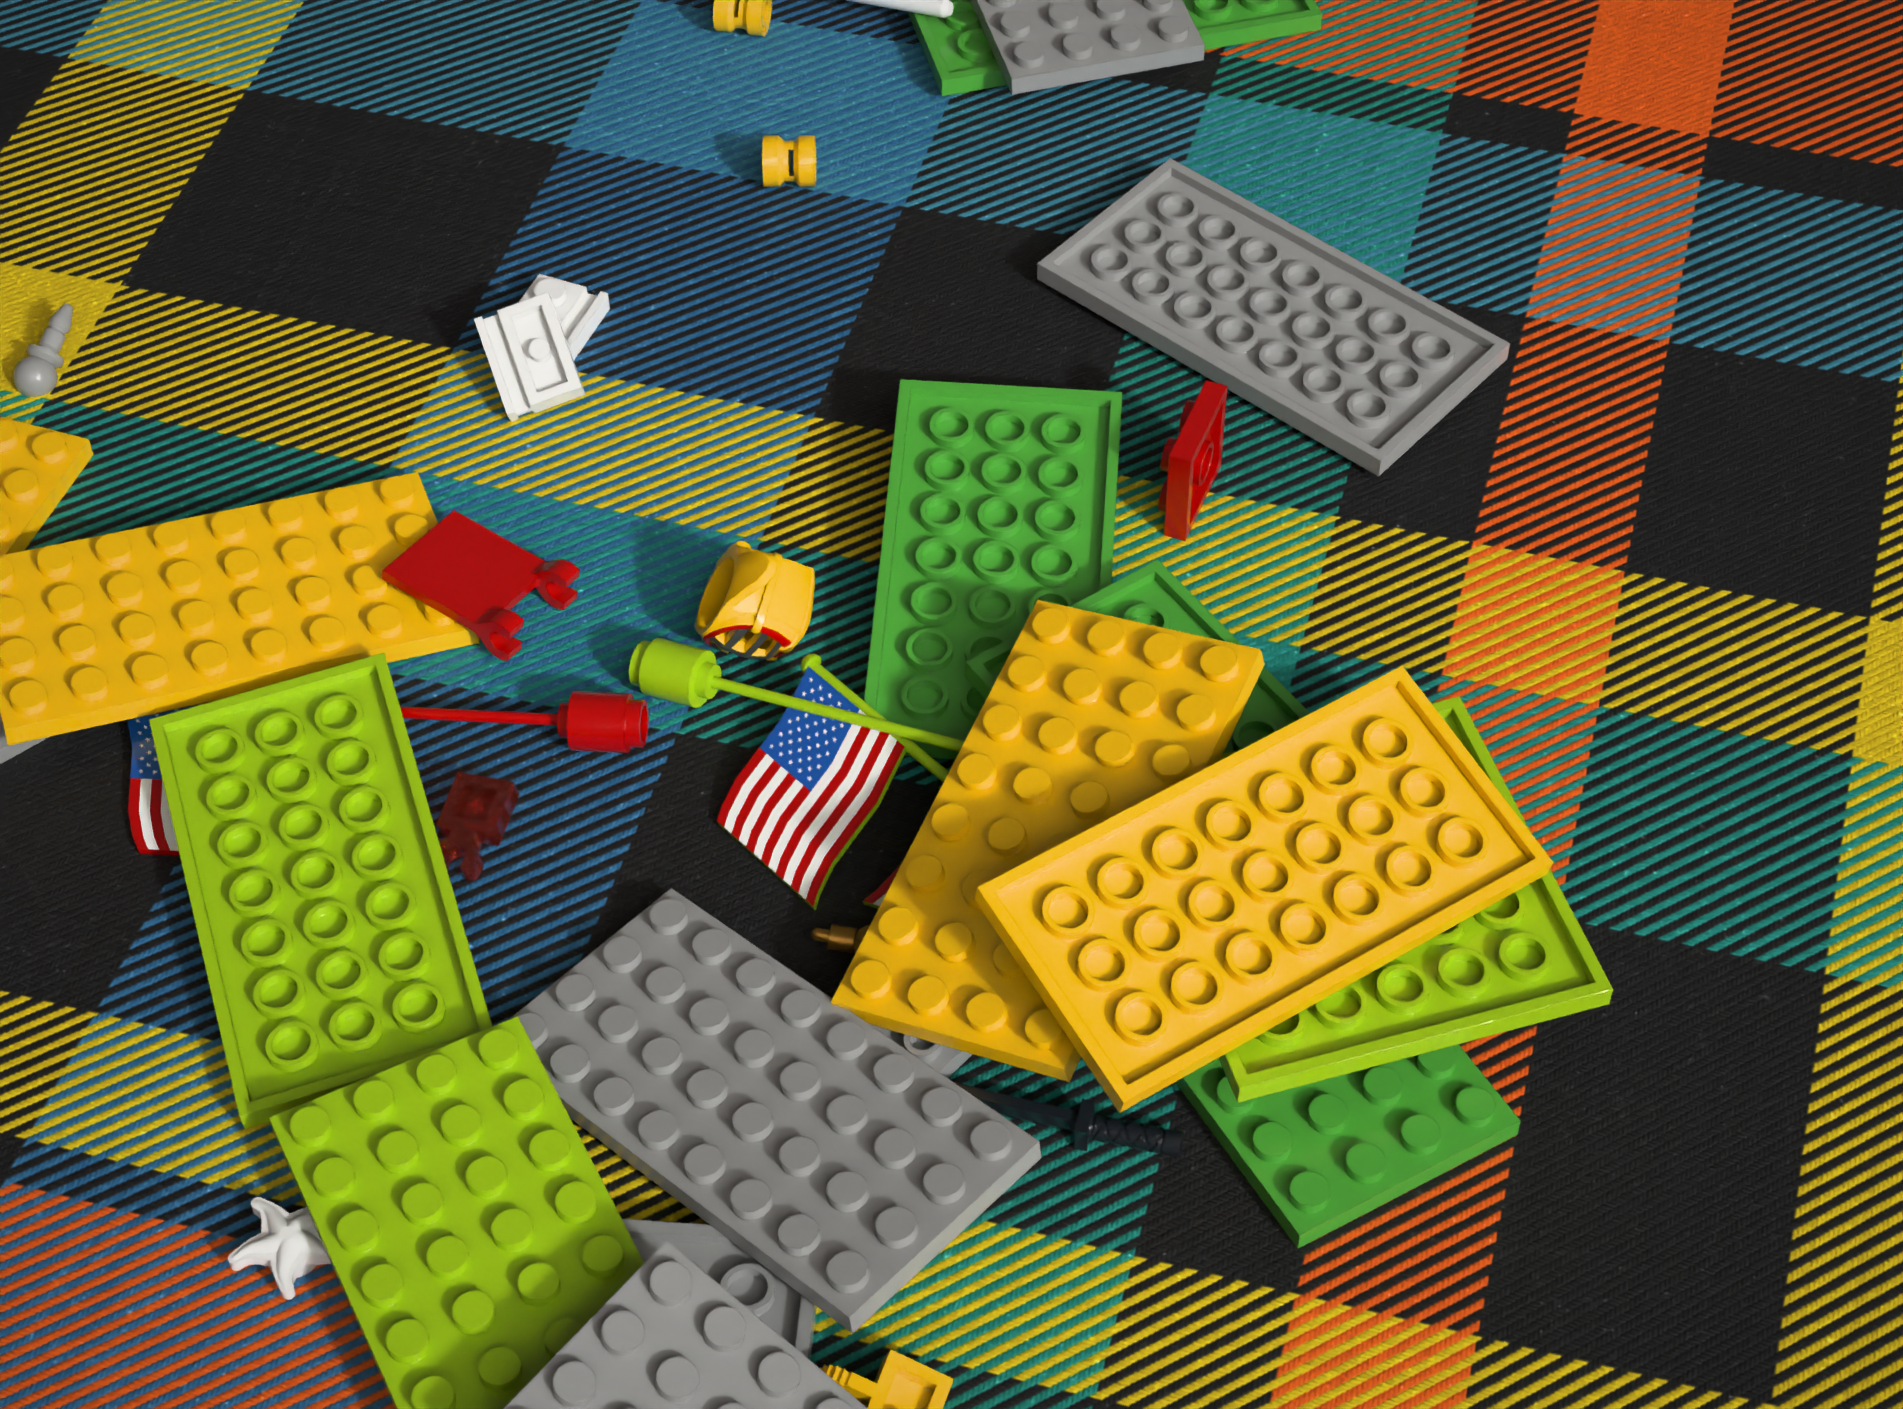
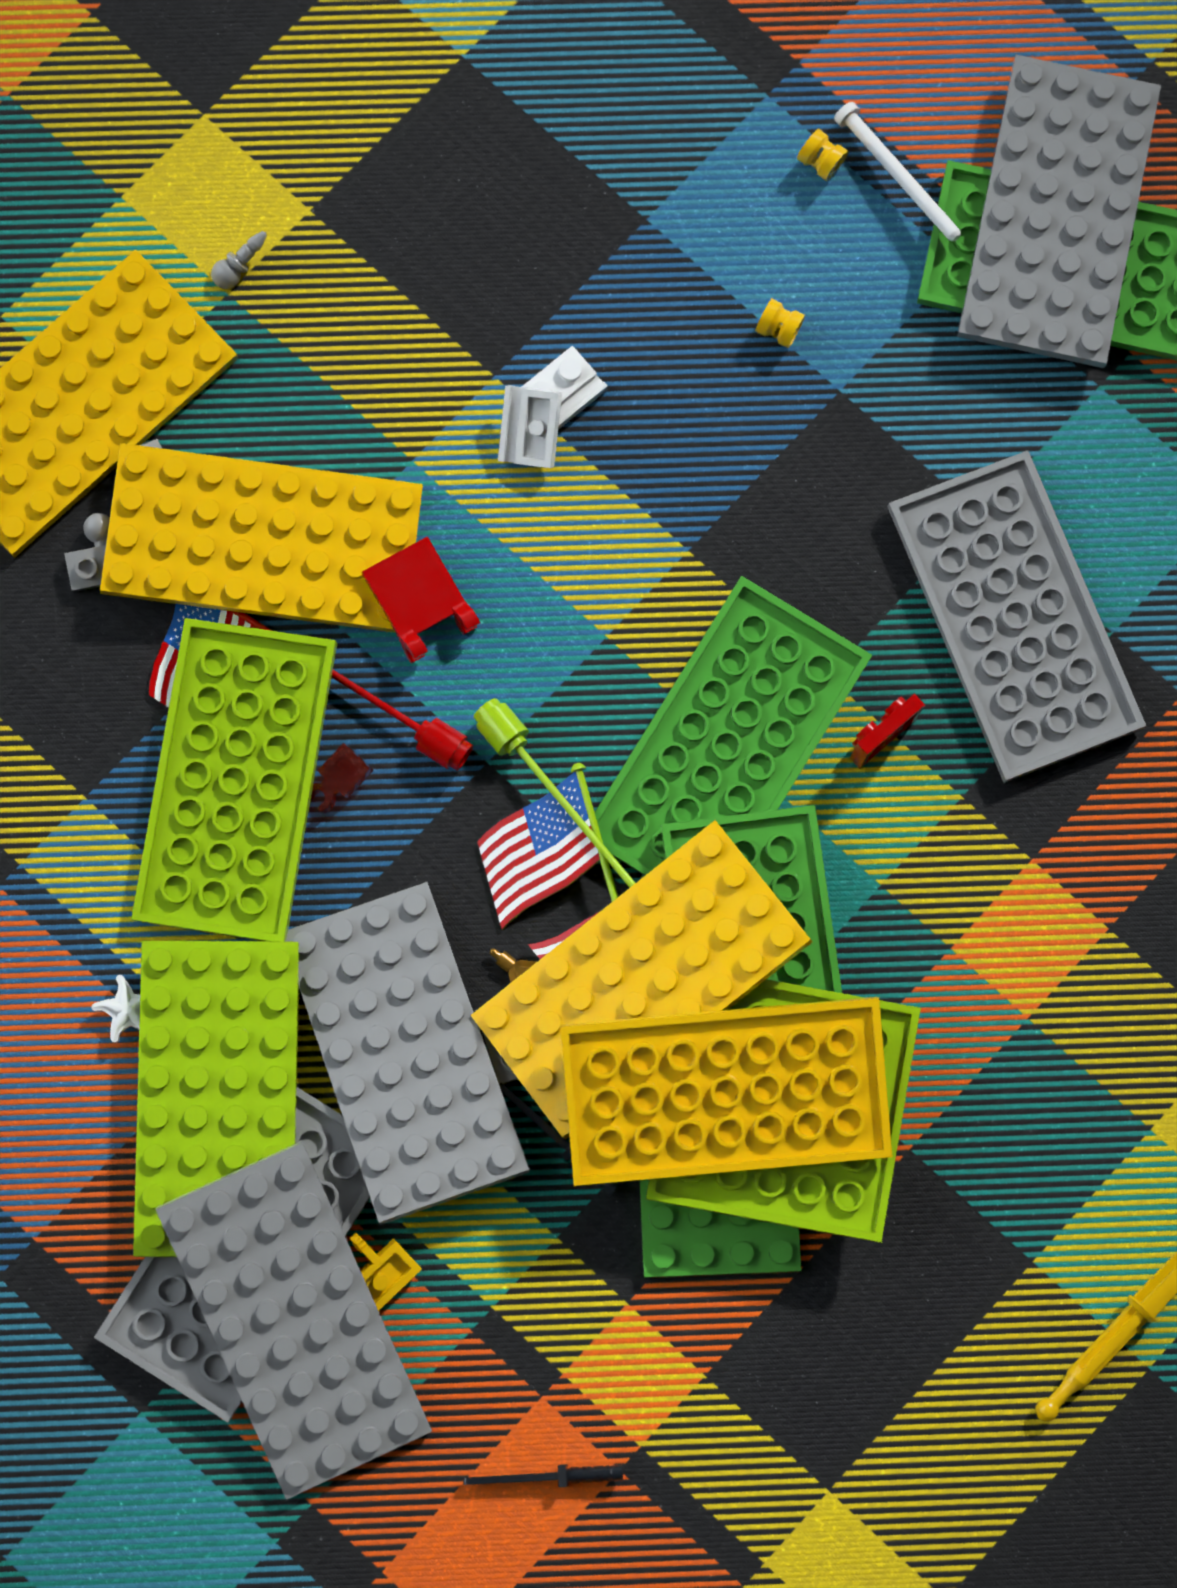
camera: 20 degrees right, 30 degrees up
(756, 603) = (567, 706): yellow piece -> none

